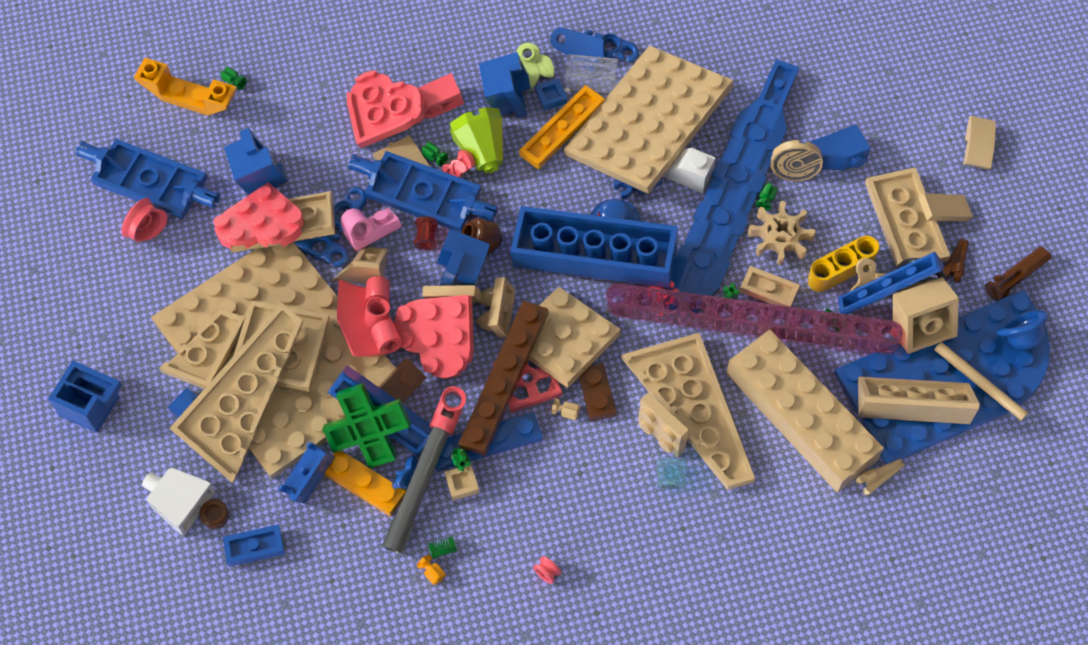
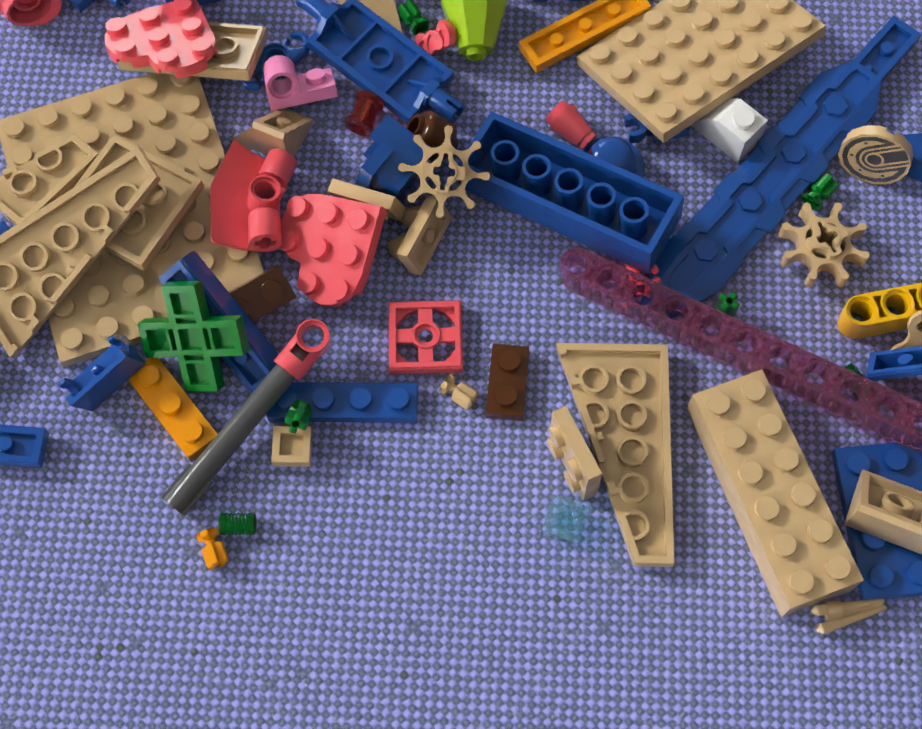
camera: 20 degrees right, 5 degrees up
(332, 248) = (242, 100): blue piece -> none
(404, 476) = (222, 415): blue piece -> none
(503, 378) = (390, 328): reddish brown plate -> none
(518, 255) = (426, 170): none -> tan gear
(547, 570) = (358, 597): coral bush -> none
(570, 338) = (489, 297): tan plate -> none
(576, 199) = (570, 124): none -> coral cone
(769, 287) = (782, 313): tan plate -> none

